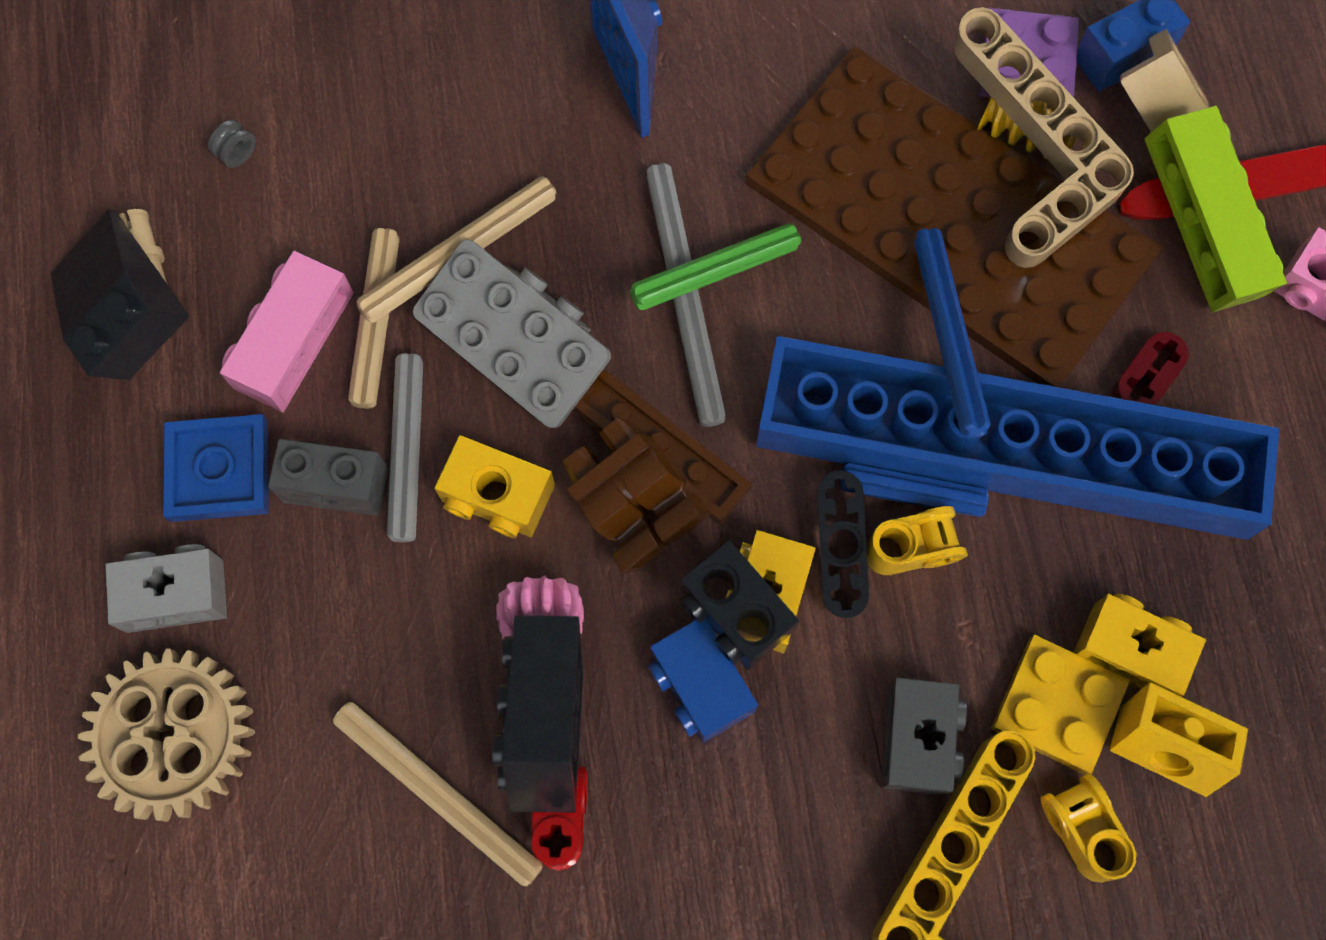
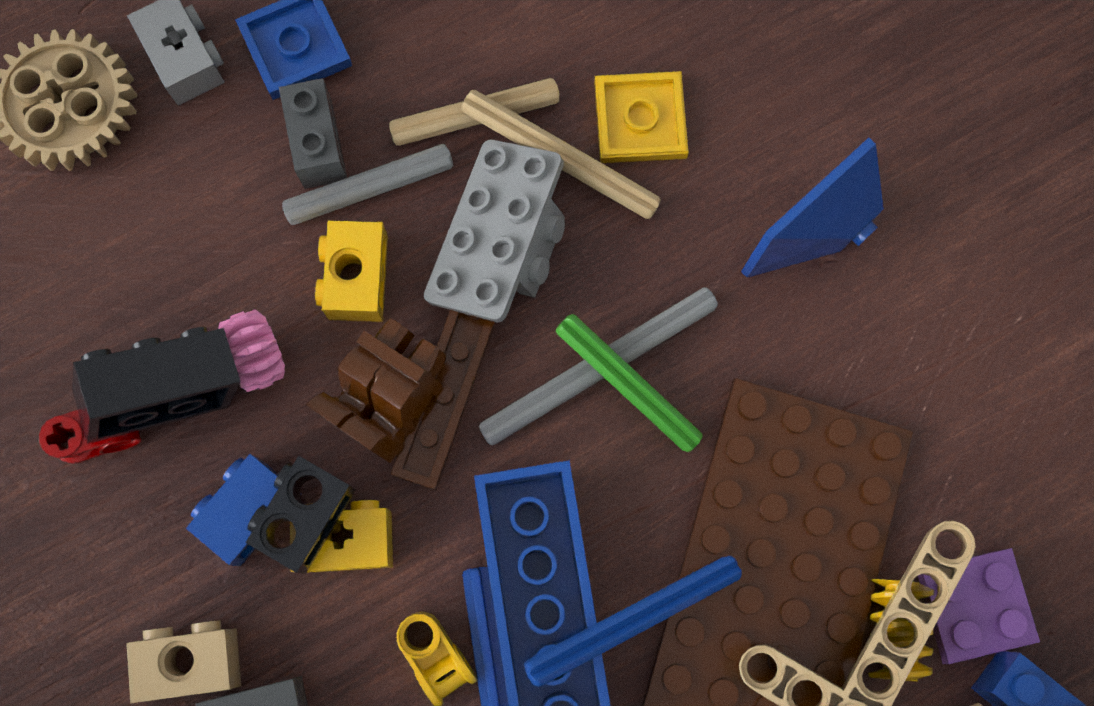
camera: 65 degrees right, 5 degrees up
(286, 331) = (430, 46): bright pink brick -> none
(438, 794) = (85, 323): tan axle -> none
(449, 167) = (641, 117): none -> yellow tile
(853, 505) = (372, 591): black beam -> none
(857, 764) = (154, 668): none -> tan brick

